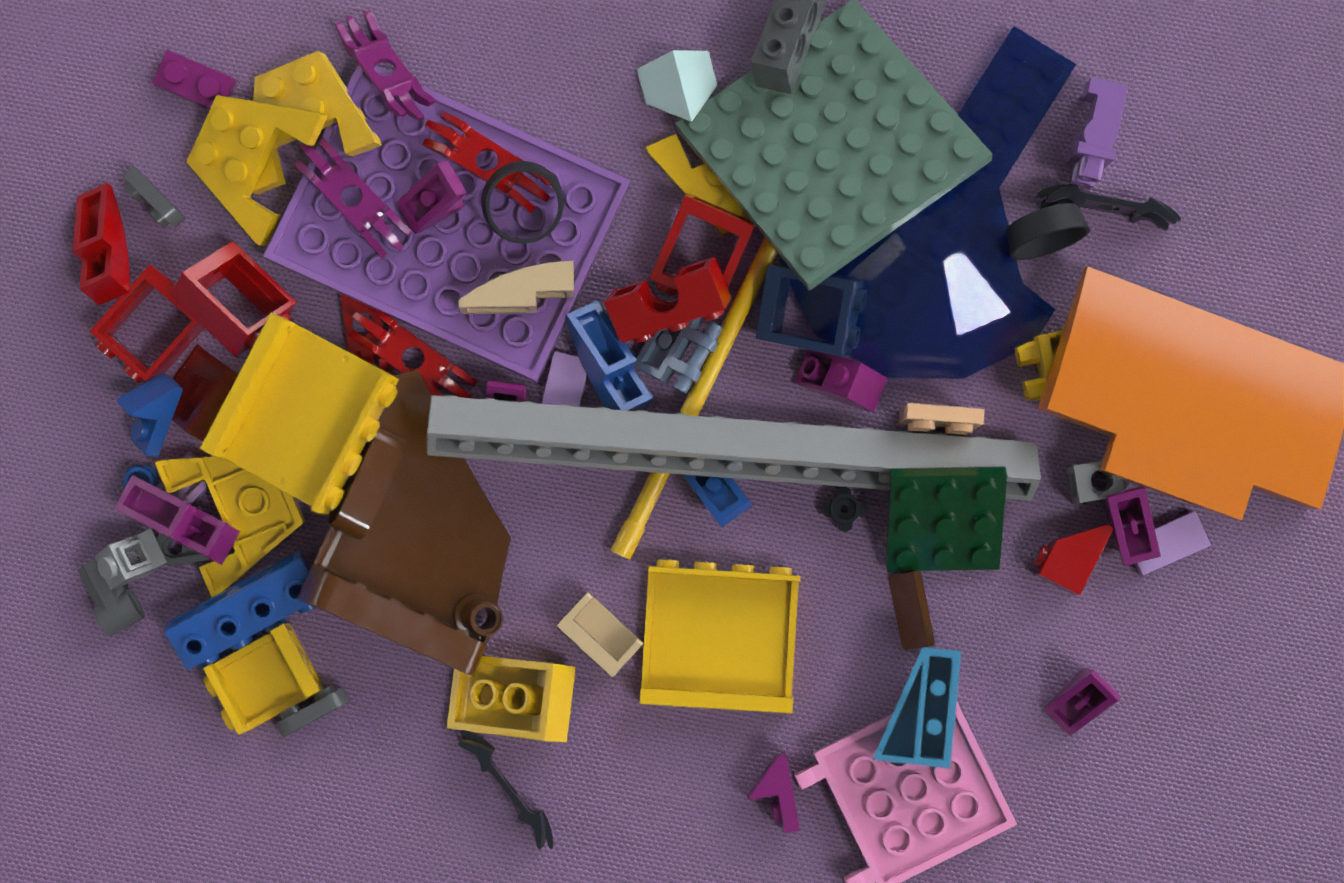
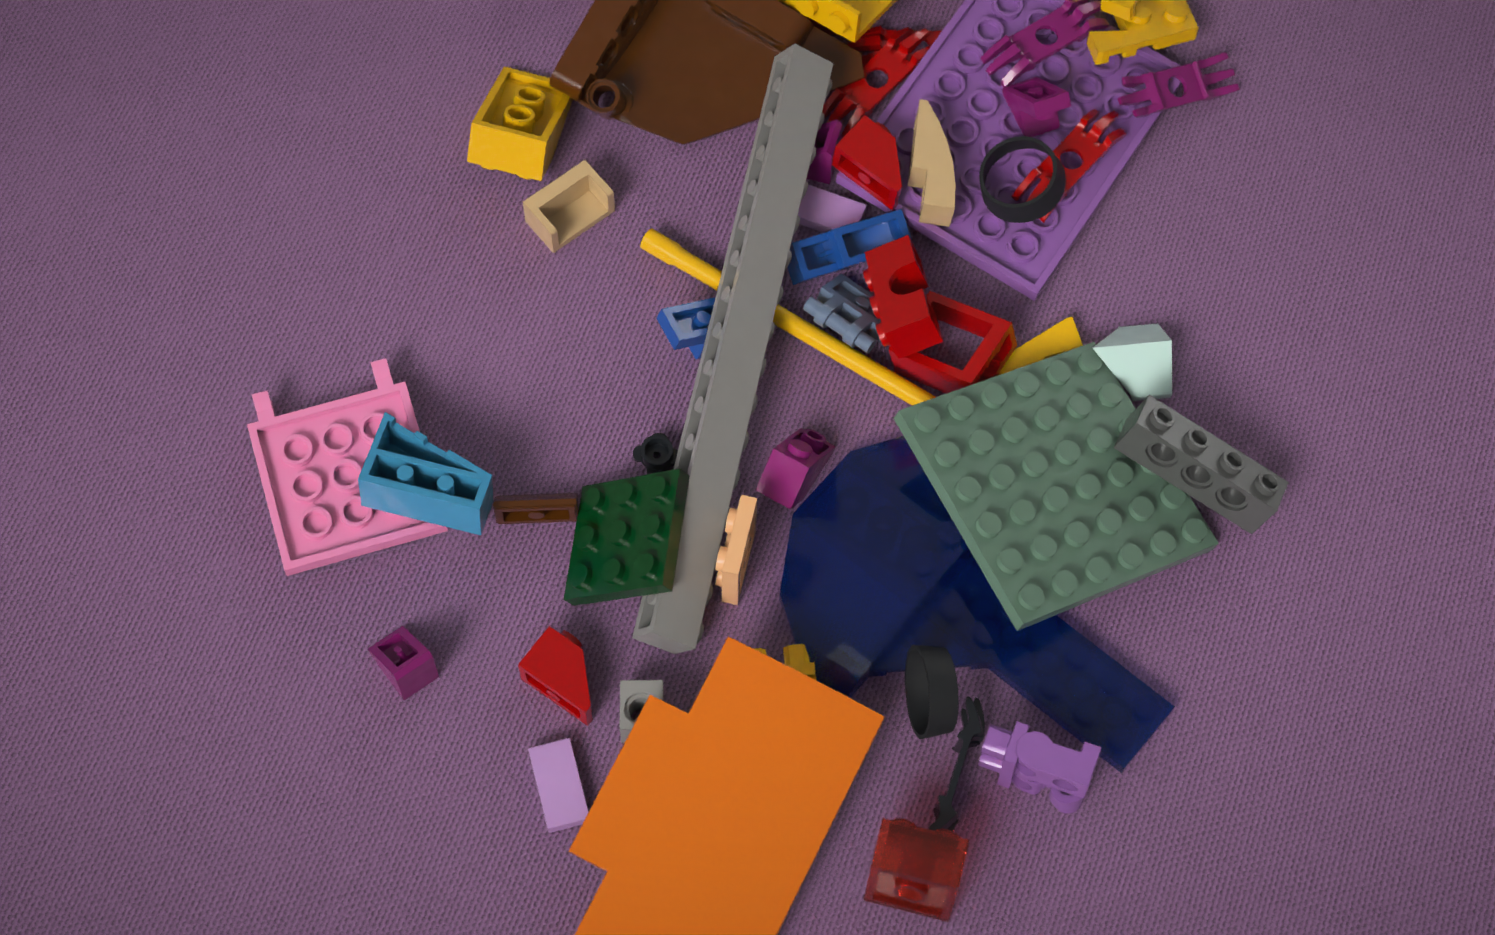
camera: 100 degrees right, 20 degrees down
(524, 346) = (871, 160): none -> red slope
(536, 819) = (404, 118): black piece -> none
(719, 637) = (542, 318): yellow panel -> none
(774, 306) = (871, 407): dark blue window -> none
(777, 782) = (384, 341): magenta slope -> none
(1133, 525) = (585, 737): magenta slope -> none
(1206, 224) = (916, 869): none -> clear red slope

